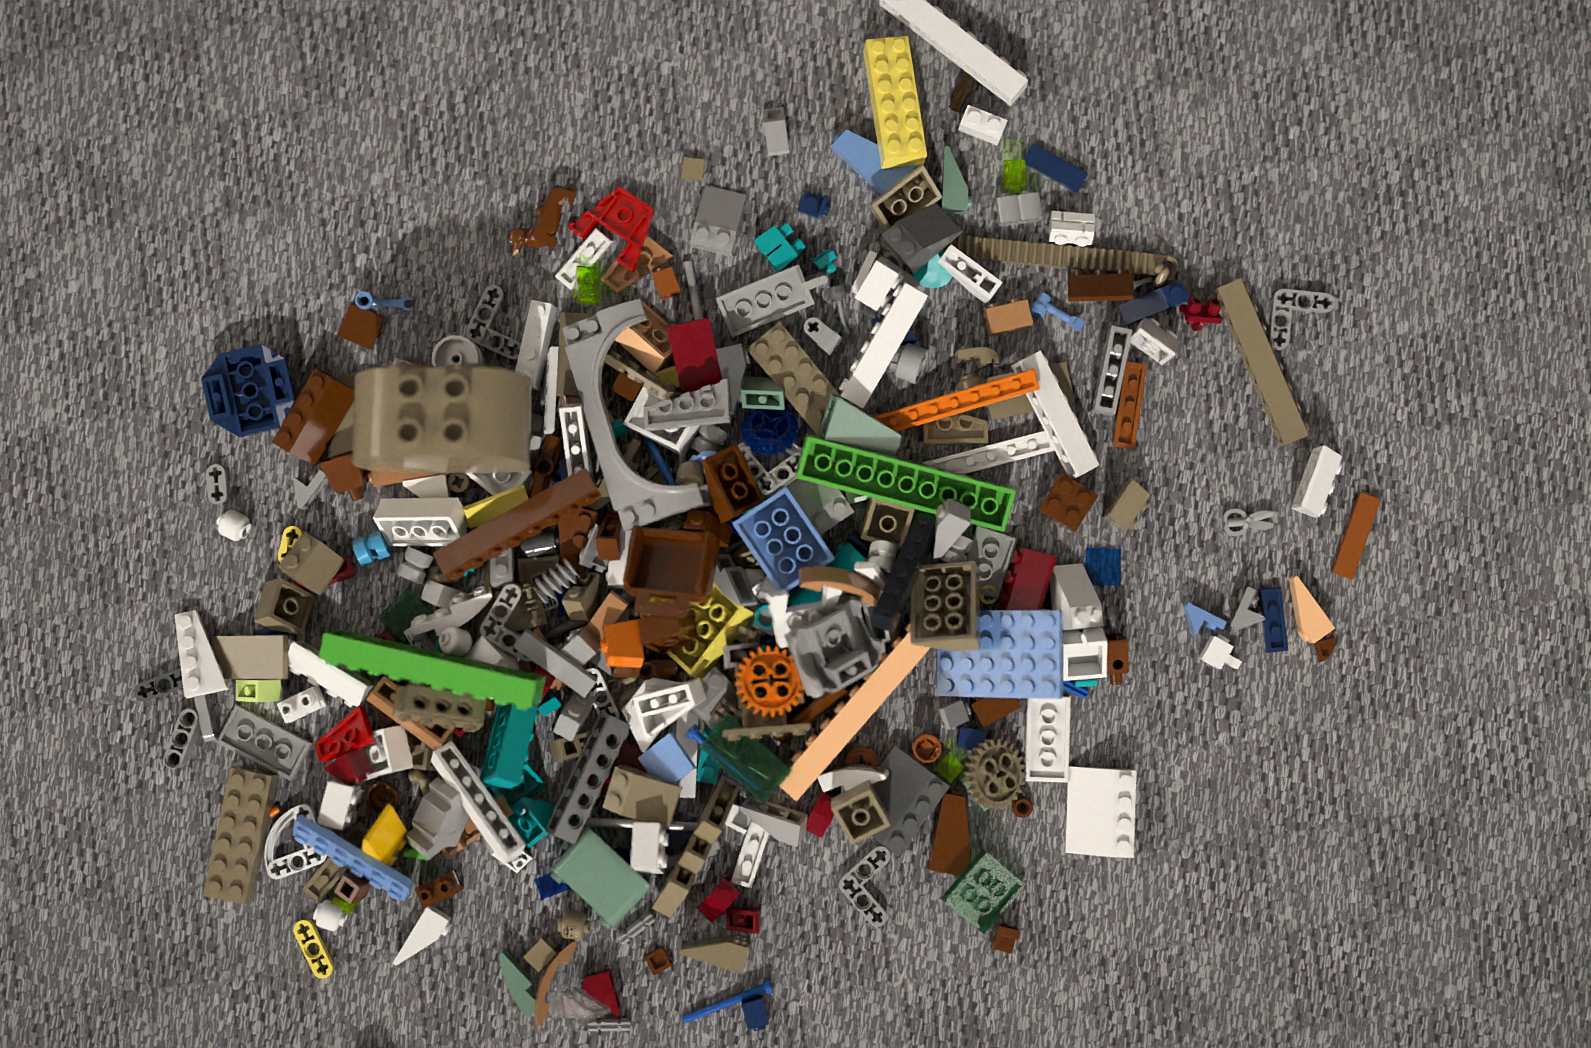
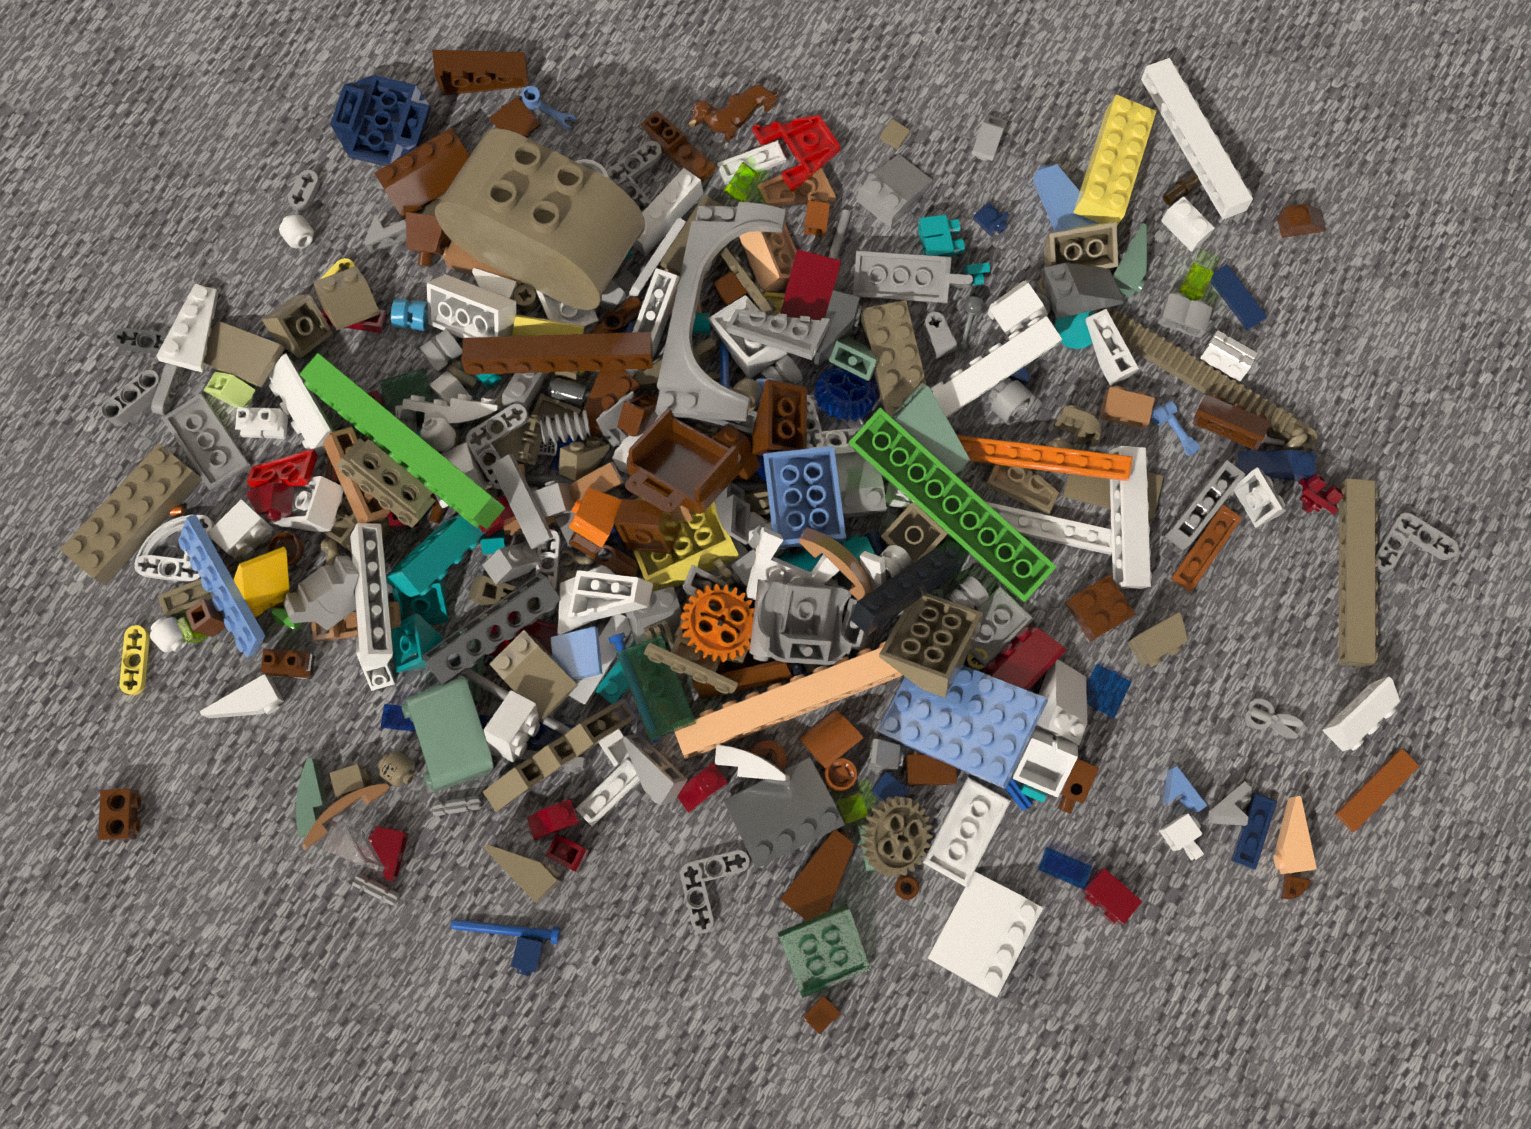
camera: 20 degrees right, 10 degrees down
(307, 299) = (479, 71): none -> reddish brown wedge
(515, 280) = (676, 146): none -> reddish brown slope
(658, 960) = (460, 850): reddish brown tile -> none
(756, 616) = (738, 561): teal piece -> none
(860, 812) = (741, 800): dark tan brick -> none
(903, 722) = (830, 738): none -> dark orange slope
(950, 523) = (977, 562): light grey slope -> none
(1077, 70) = (1300, 220): none -> reddish brown slope
(1138, 727) = (1064, 868): none -> clear blue tile
(1185, 731) = (1111, 897): none -> dark red brick

